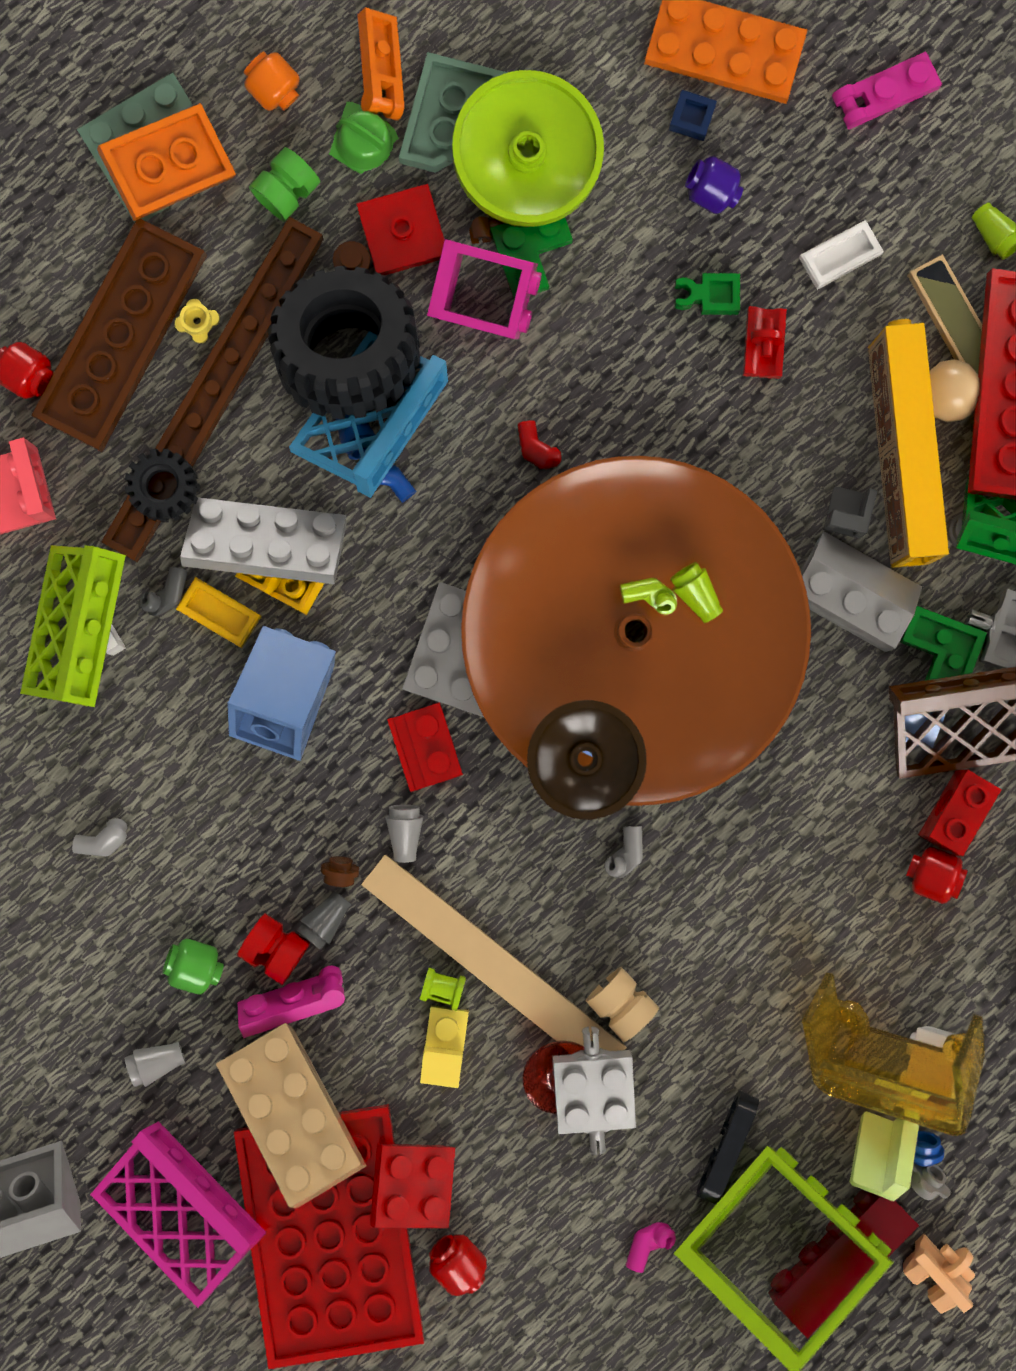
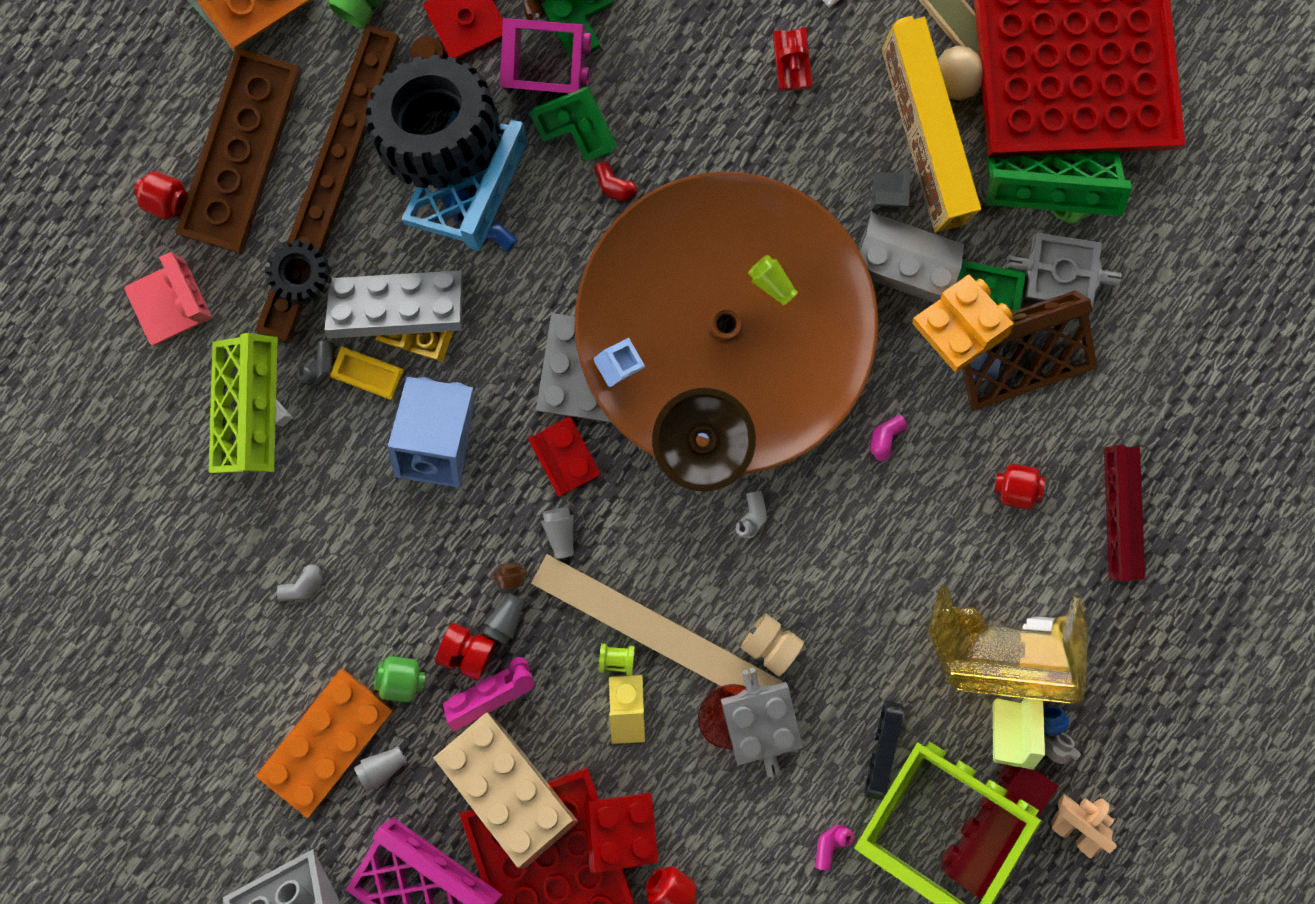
camera: 10 degrees left, 0 degrees up
(96, 1023) = (324, 743): none -> orange plate
(189, 313) = (299, 119): light yellow plate -> none
(506, 653) = (618, 362): none -> light blue slope
(509, 362) = (580, 116): none -> green plate
(652, 592) = (734, 287): lime arm -> none
(717, 293) = (744, 26): green plate -> none
(790, 790) = (883, 435): none -> dark pink arm
(906, 679) = (964, 322): none -> light orange plate
(959, 812) = (1030, 429): red brick -> none

